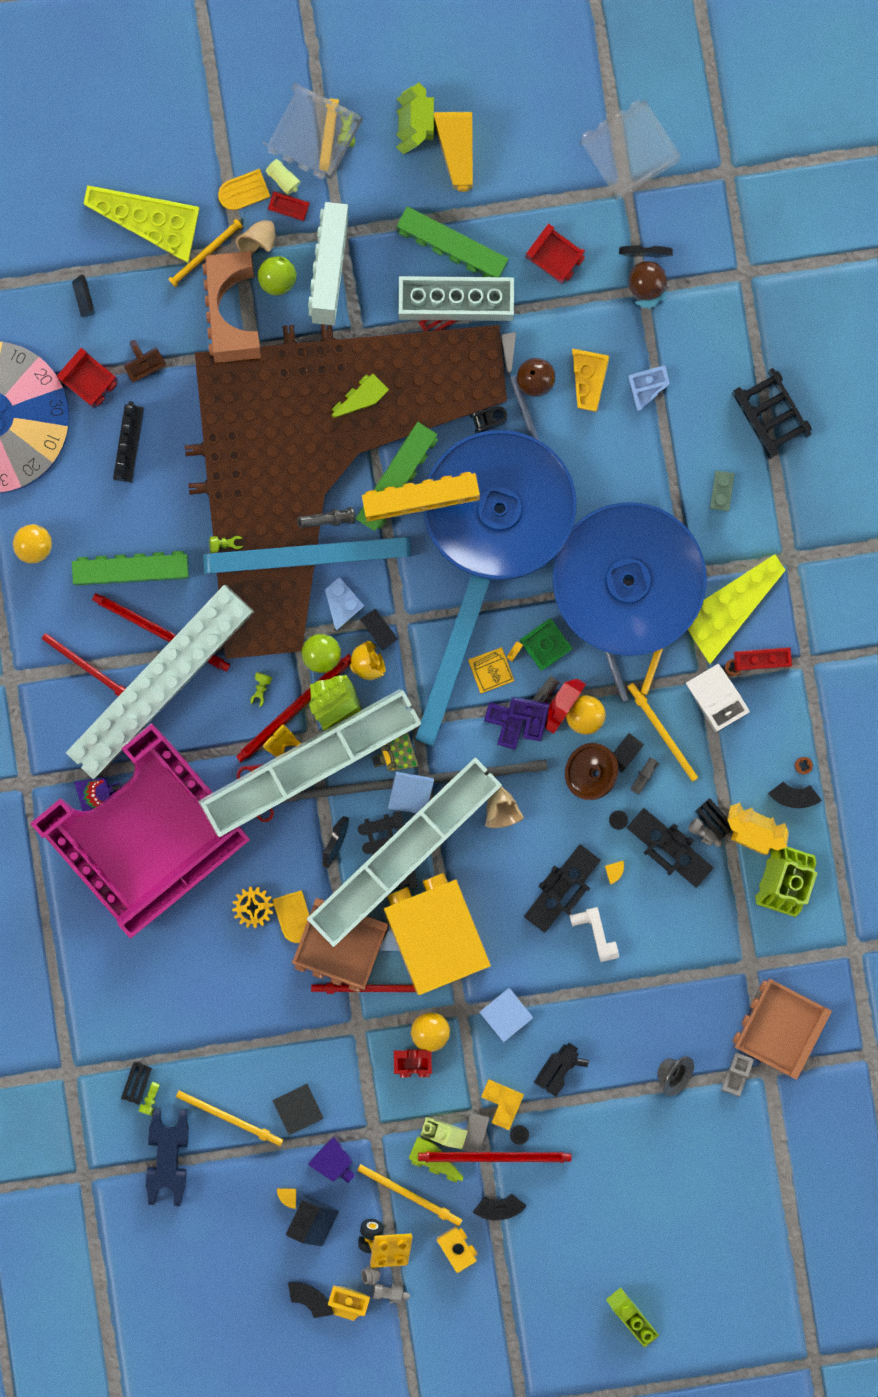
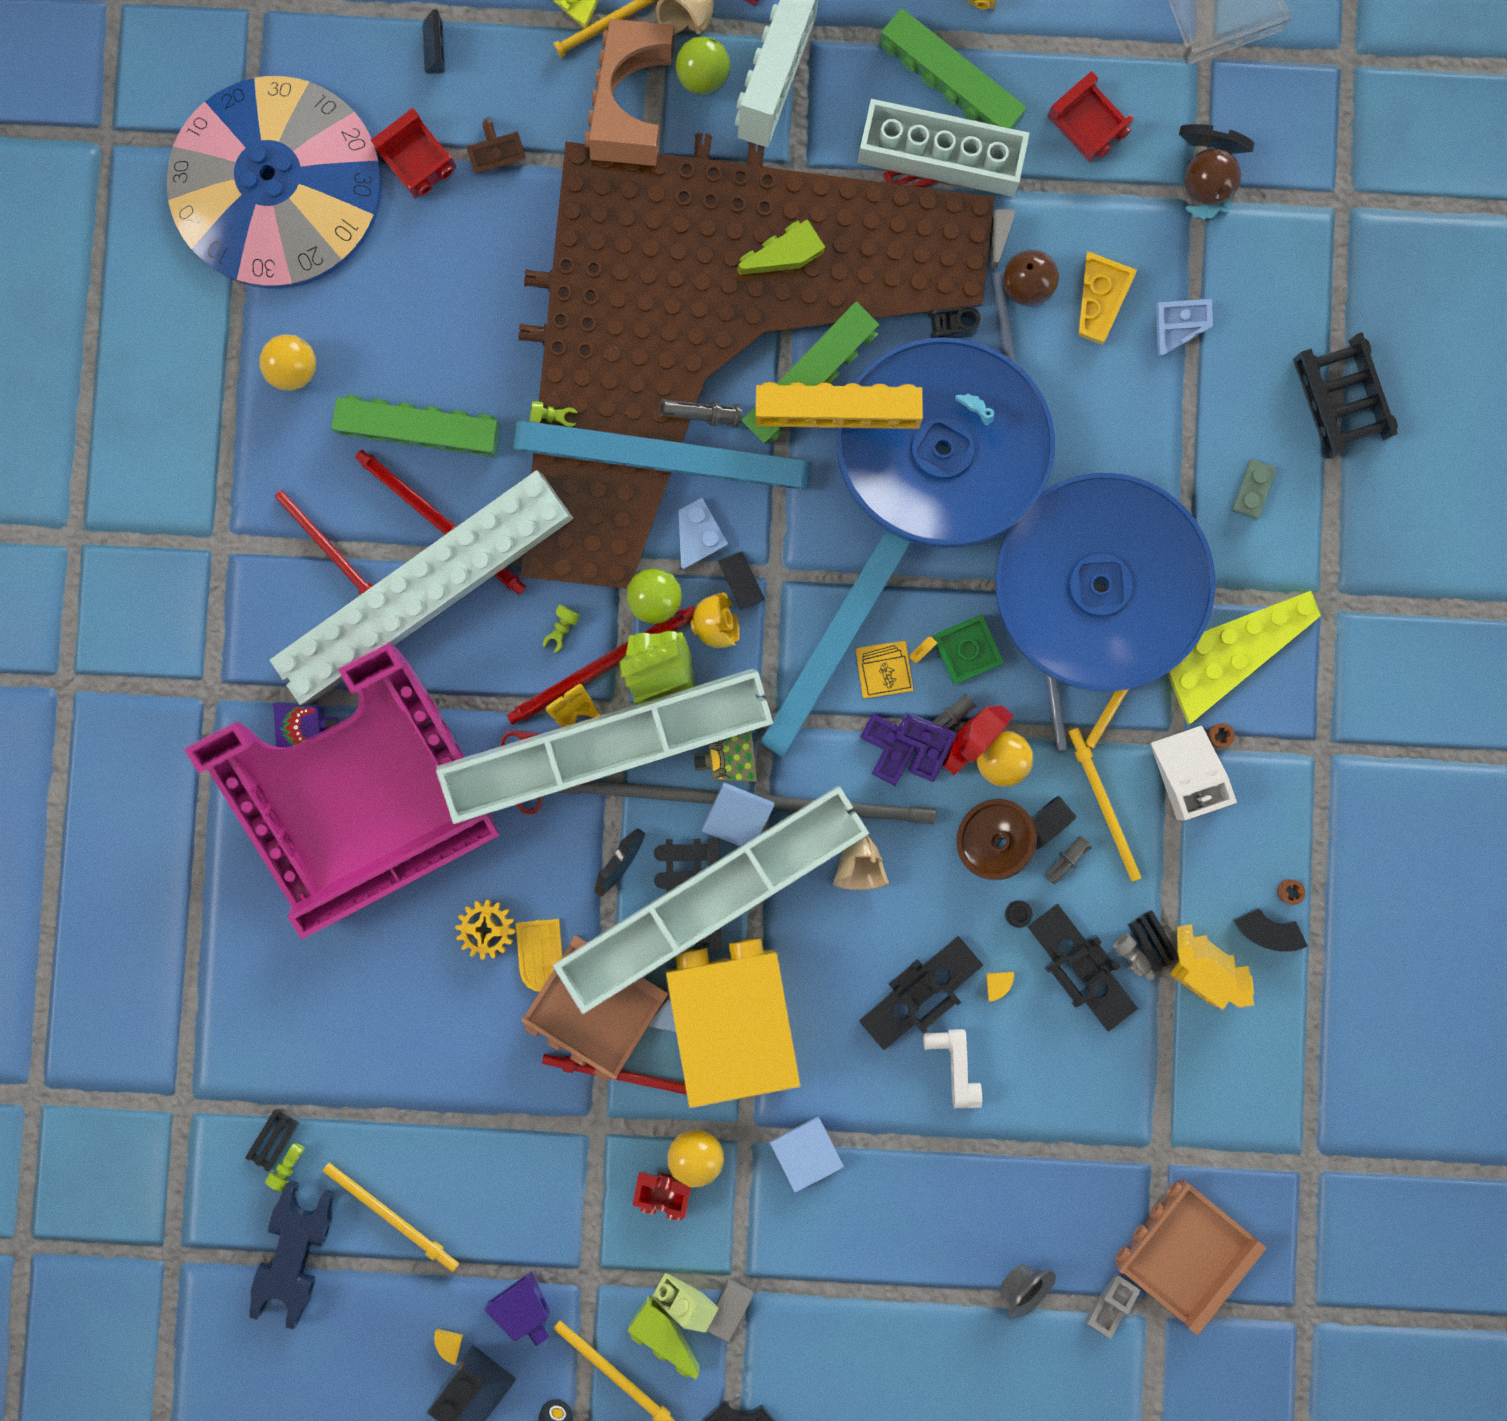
camera: 10 degrees right, 0 degrees up
(128, 443) = (451, 252): black fence -> none
(298, 1109) = (488, 1224): clear smoke tile -> none
(494, 1157) = (748, 1354): red piece -> none
(507, 1100) = (783, 1276): yellow plate -> none
(514, 475) = (974, 404): none -> medium azure piece
(519, 1134) = (790, 1326): black plate -> none
(568, 1059) = (862, 1244): black piece -> none
(762, 659) = (1265, 732): red tile -> none
(787, 881) = (1238, 1050): lime slope -> none

